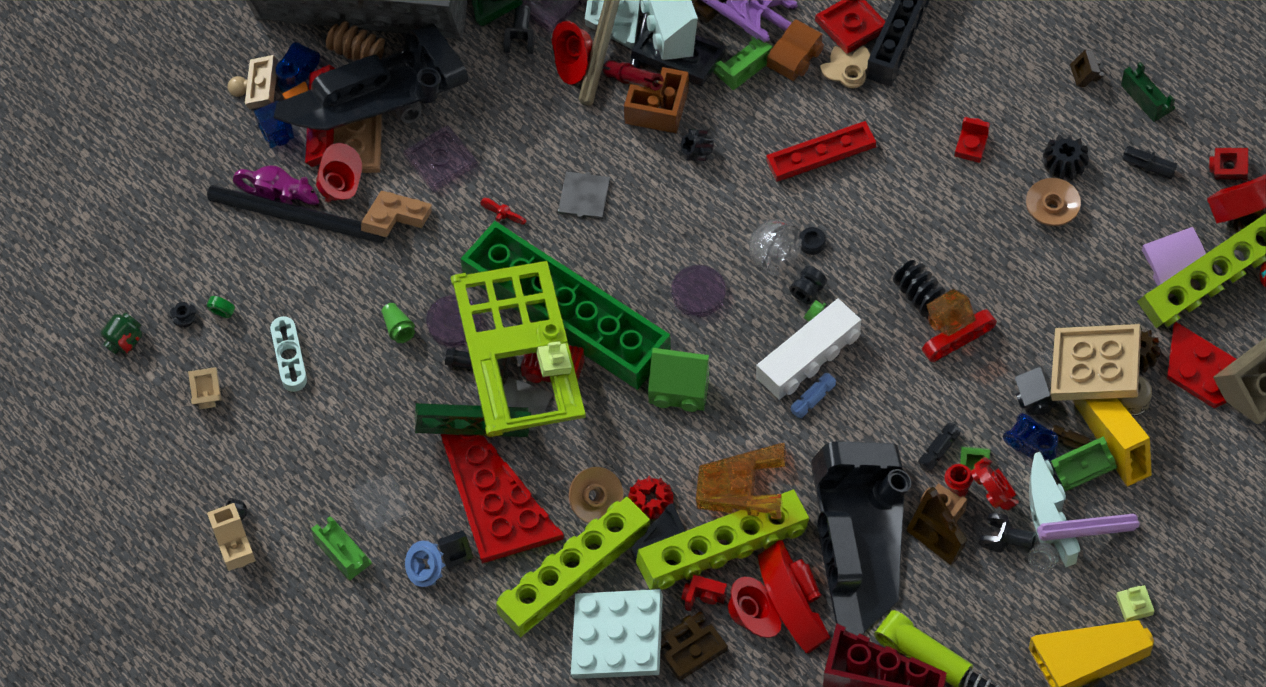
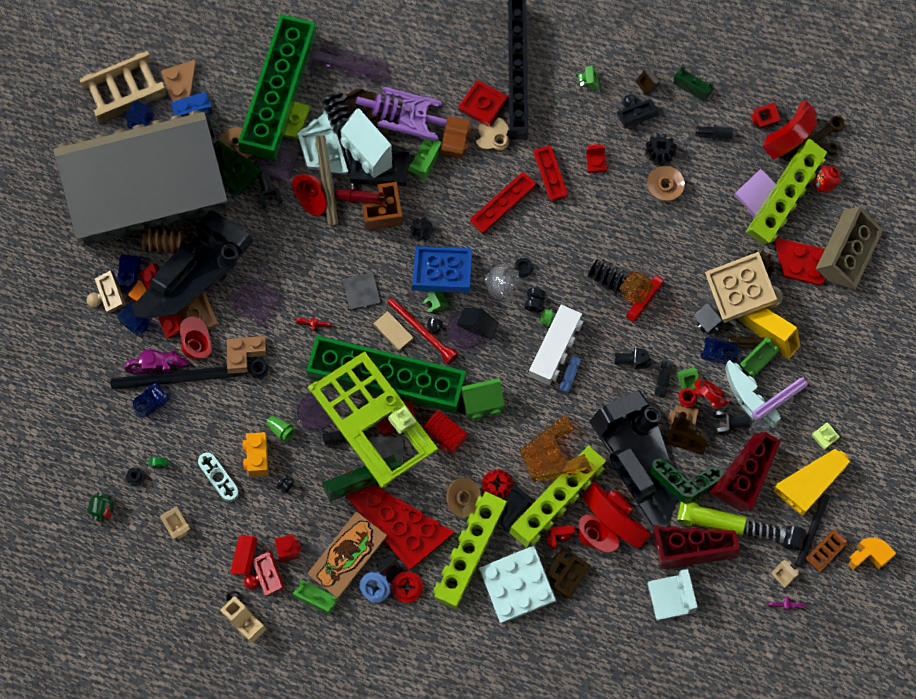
camera: 25 degrees left, 10 degrees up
(247, 227) = (152, 397): none -> clear blue piece
(273, 461) = (243, 555): none -> red tile
(292, 496) = (267, 575): none -> plate
(333, 472) = (287, 548): none -> red brick
(350, 342) = (257, 454): none -> light orange brick
(369, 393) = (285, 484): none -> black bush
(404, 234) = (258, 363): none -> black plate
(407, 510) = (347, 555): none -> tile
(463, 571) = (413, 580): none -> red gear
(602, 258) = (393, 331): none -> tan tile
(609, 405) = (445, 432): none -> red brick
(659, 269) = (434, 325): none -> black hinge
(660, 311) = (448, 354): none -> red piece
(677, 240) = (438, 301): none -> bright green tile
(699, 201) = (442, 269): none -> blue plate
(719, 285) = (478, 322): none -> black slope
(901, 137) = (550, 173): none -> red plate
(910, 406) = (636, 358): none -> black piece
(946, 596) = (689, 486): none -> dark green beam
(994, 610) = (747, 473): none -> dark red wedge
(1008, 38) = (590, 78): none -> bright green tile
(1053, 100) = (634, 112): none -> black plate

